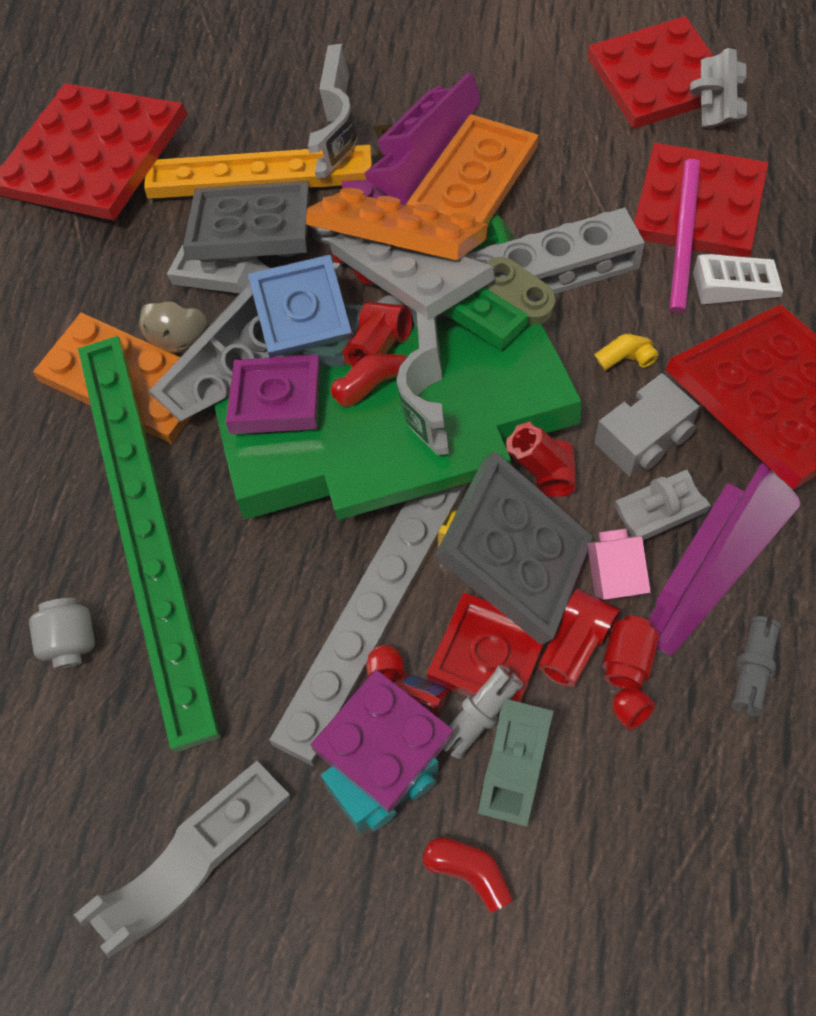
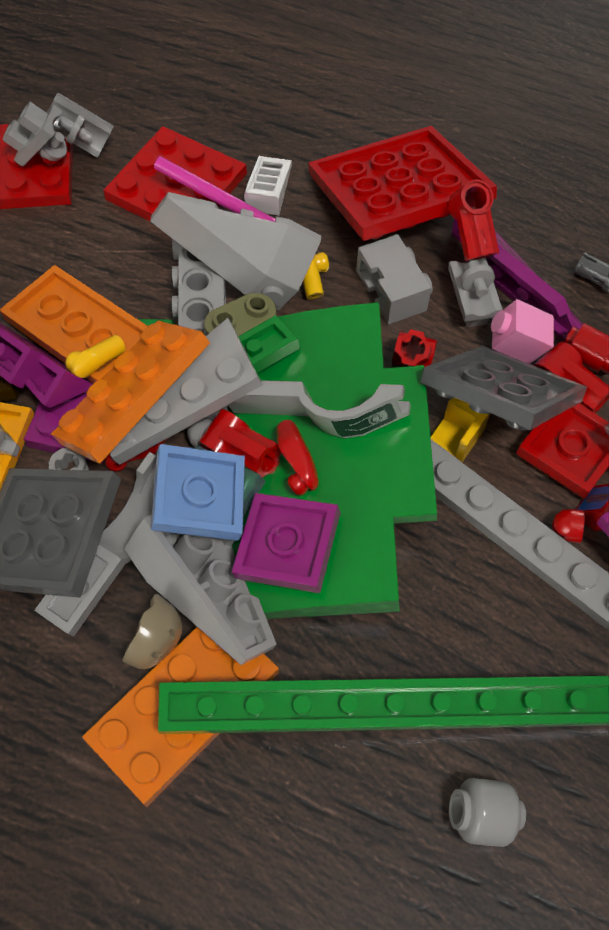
camera: 80 degrees left, 0 degrees up
(418, 185) = (90, 360): none -> yellow arm
(598, 287) = (241, 248): none -> light grey wedge
(675, 56) = (34, 133): none -> light grey hips
(727, 469) = (475, 224): none -> red piece

